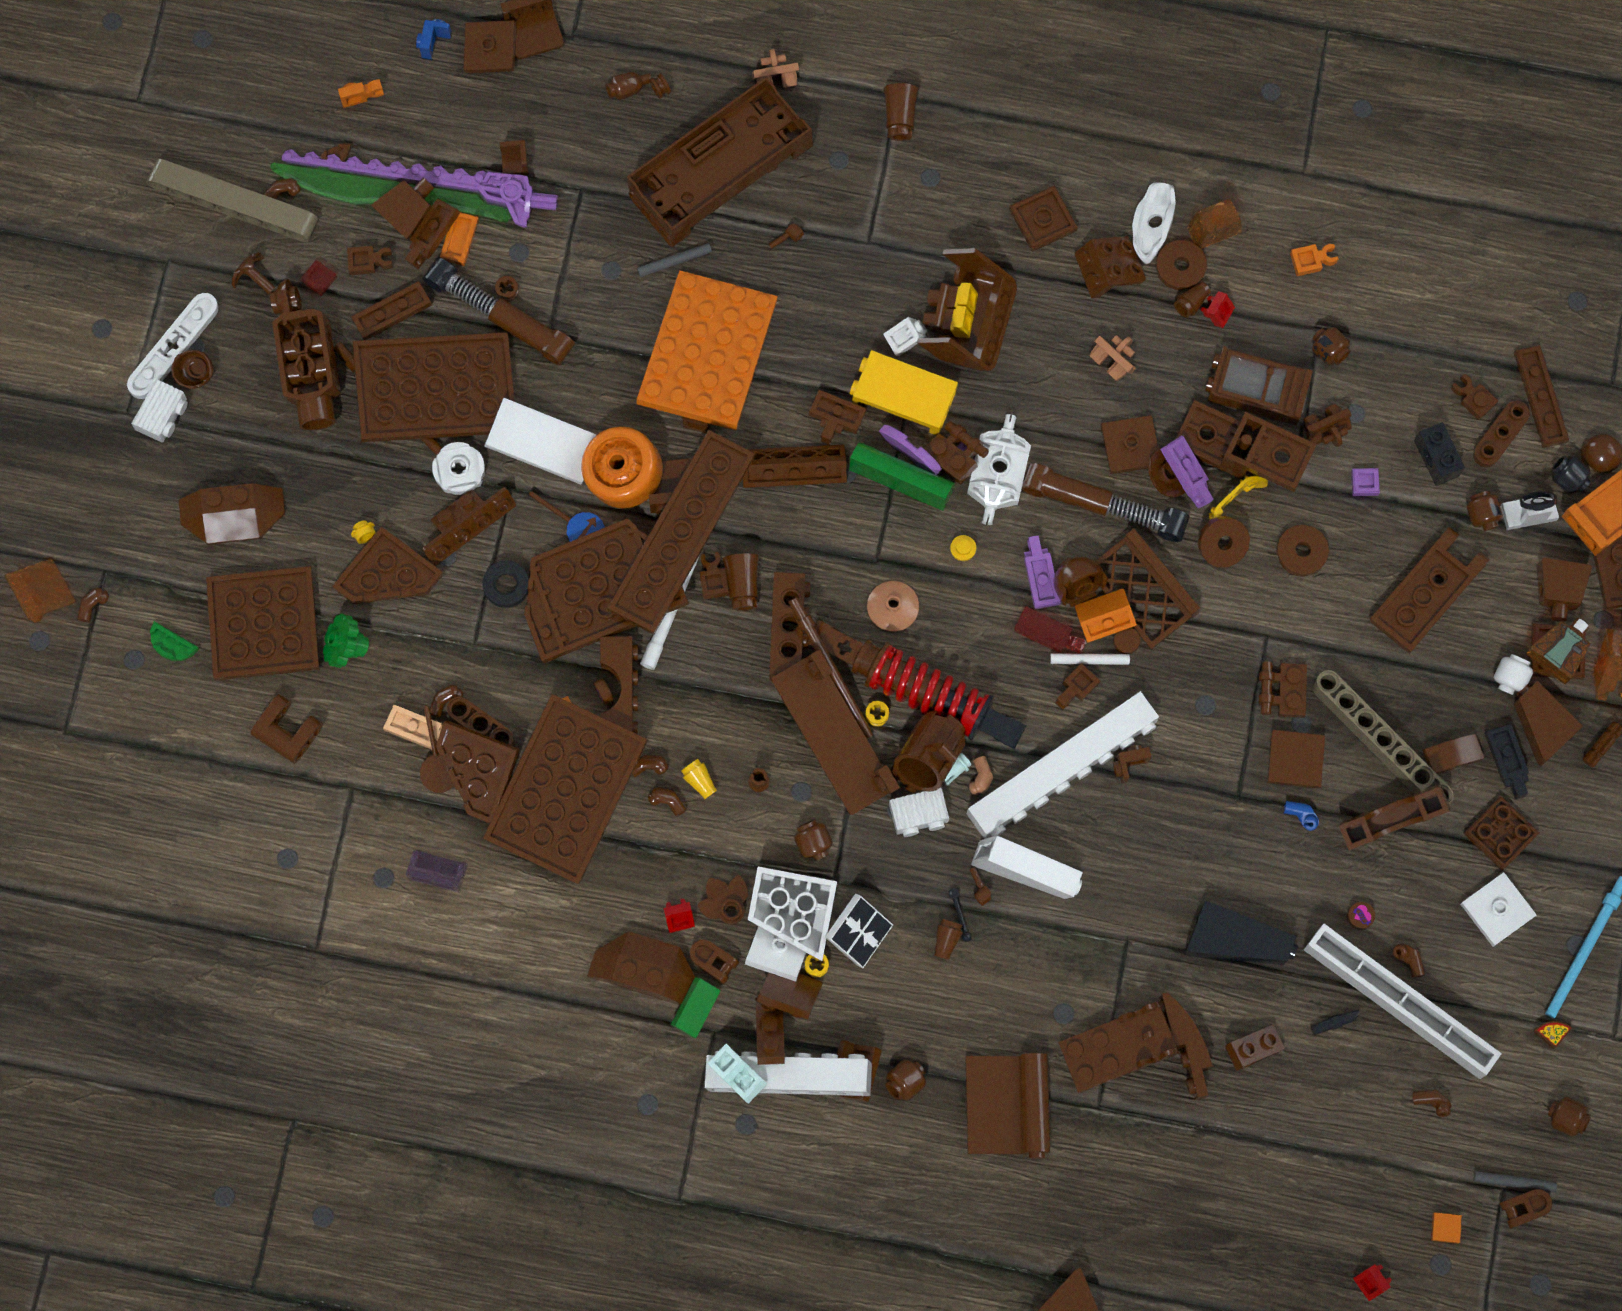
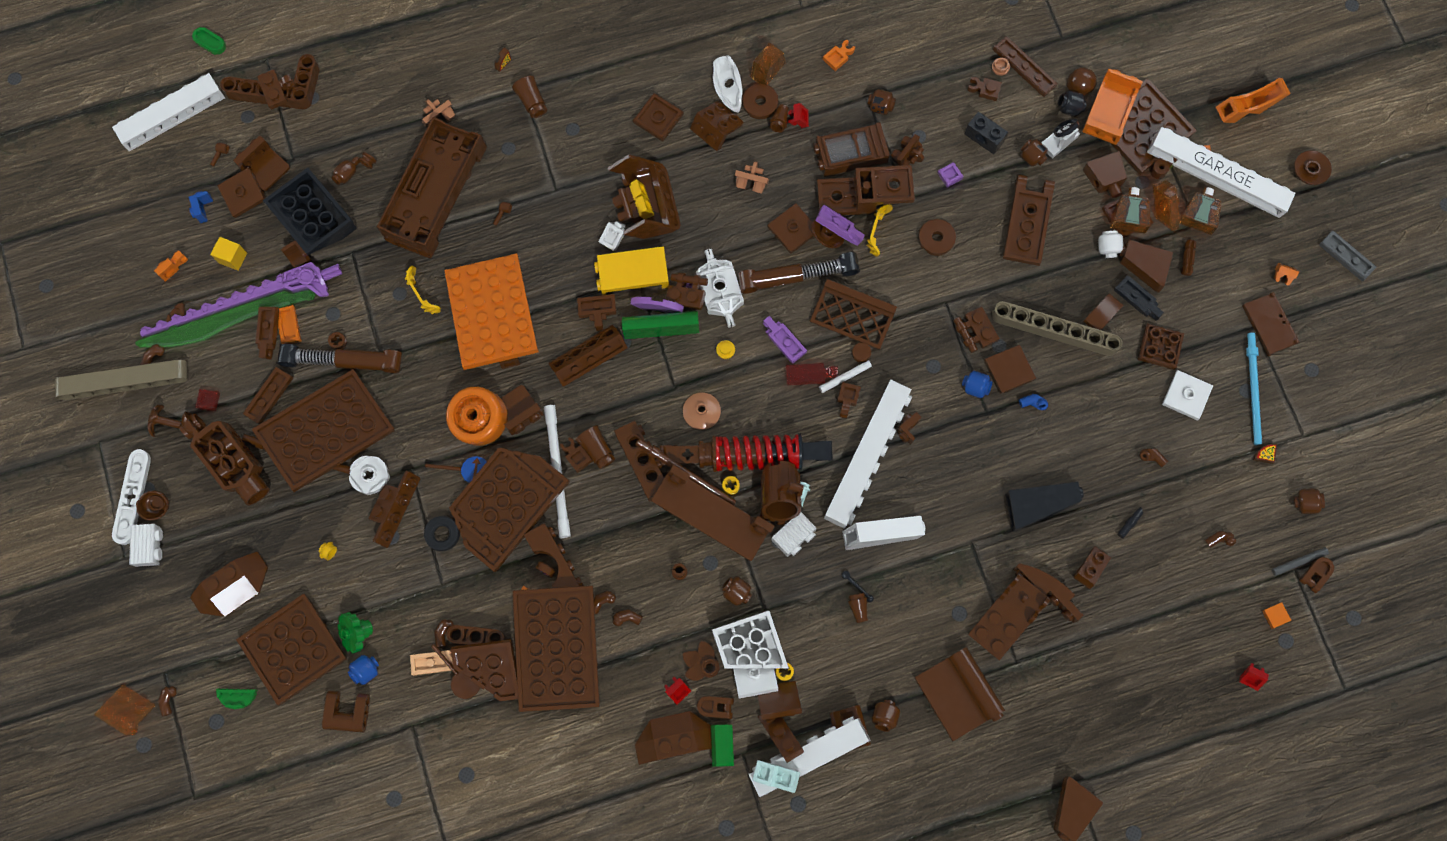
camera: 25 degrees left, 0 degrees up
(331, 691) = (363, 669): none -> blue head
(364, 259) = (232, 371): reddish brown plate -> none
(386, 572) = (357, 568): reddish brown plate -> none
(405, 206) = (240, 322): reddish brown torso -> none
(435, 114) = (228, 253): none -> yellow piece
(436, 871) = (499, 750): clear purple hinge -> none
(539, 440) = (412, 427): white tile -> none
(557, 115) = (309, 212): none -> black slope
(632, 262) = (411, 281): none -> yellow piece
(674, 260) = (437, 265): dark grey bar -> none
(681, 532) = (539, 438): reddish brown plate -> none
(699, 778) = (640, 592): yellow cone -> none
(859, 930) = (800, 634): black tile -> none
(894, 46) = (504, 59): none -> reddish brown tile
(983, 778) = (823, 490): nougat arm -> none
(983, 895) = (865, 564): reddish brown hand -> none
(1078, 580) = (810, 330): reddish brown cylinder -> none
(1105, 615) = (839, 343): orange panel -> none
(1233, 551) = (895, 261): reddish brown tile -> none
(1244, 755) = (977, 384): none -> blue head
(1361, 915) = (1107, 446): reddish brown tile -> none
(1394, 816) = (1104, 359): reddish brown arch -> none
(1402, 1001) = (1167, 486): white brick -> none
(1494, 441) = (1012, 107): reddish brown plate -> none
(1509, 380) = (1000, 66): none -> nougat plate

